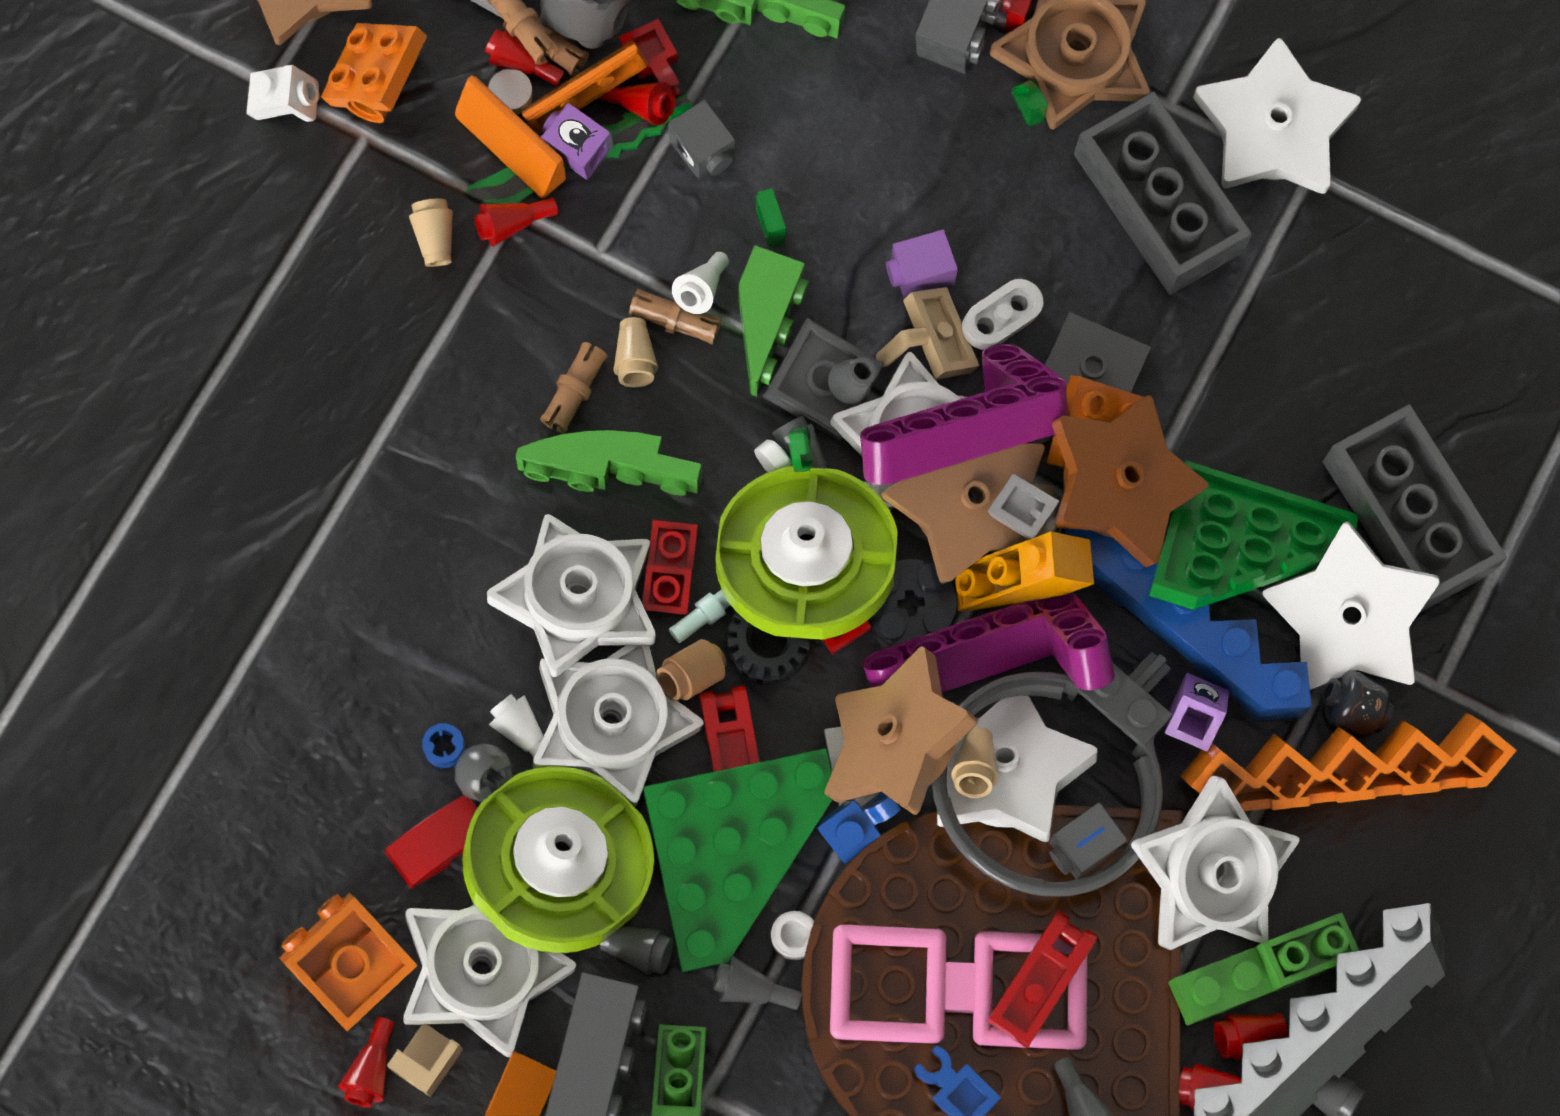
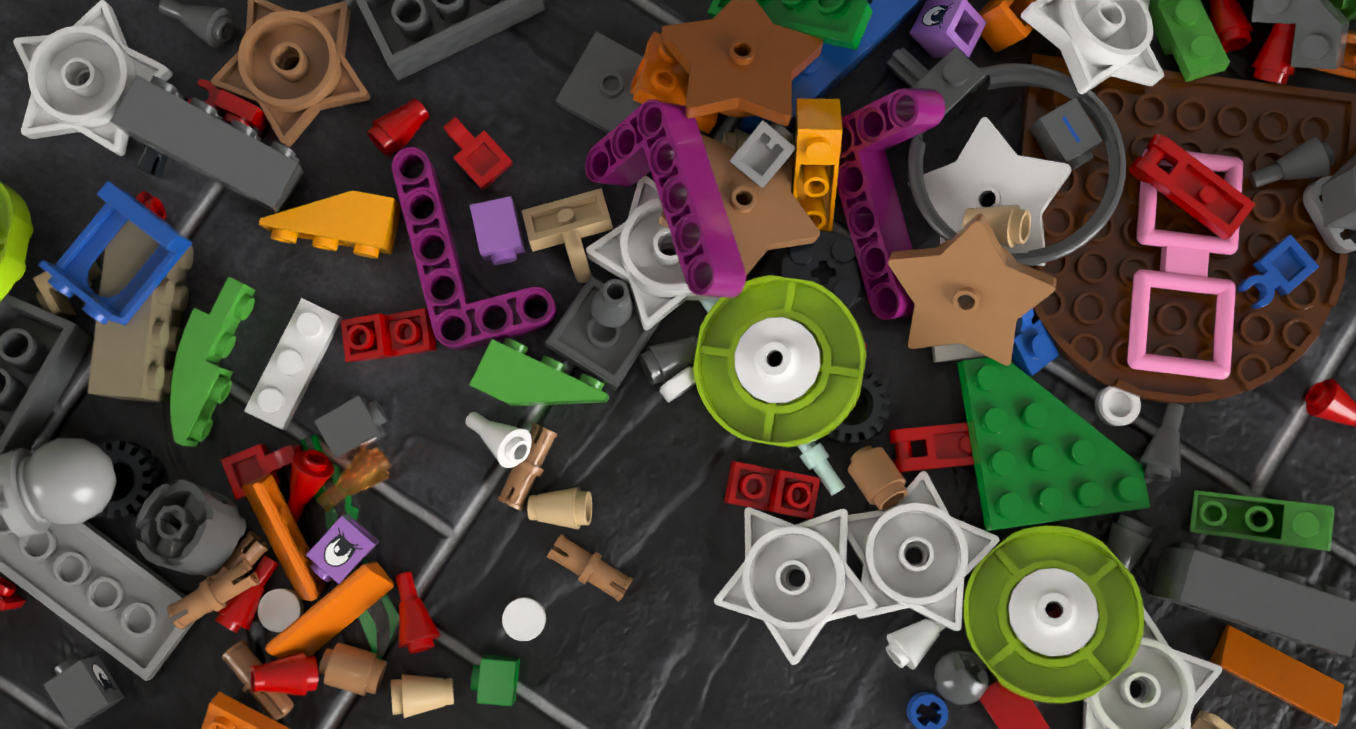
camera: 85 degrees left, 10 degrees up
(438, 76) = (240, 660): none -> medium nougat axle
(445, 99) = (286, 675): none -> red cone
(452, 303) = (496, 680): none -> green plate
(455, 164) = (352, 669): none -> medium nougat brick
(516, 327) = (524, 619): none -> white tile
(591, 456) = (663, 557): bright green slope -> none
(657, 156) = (364, 471): none -> clear orange cone
(763, 80) = (293, 364): none -> white plate
(770, 218) = (438, 368): green tile -> none
(801, 169) = (387, 335): none -> red slope
(801, 449) = (677, 357): green tile -> none
(880, 221) = (447, 267): none -> magenta beam
(918, 114) = (346, 219): none -> light orange slope
(999, 316) = (554, 164): white plate -> none
(1001, 240) = (478, 156): none -> red plate
(1022, 157) = (397, 127): none -> red cone
(1030, 102) = (341, 114): green tile -> none

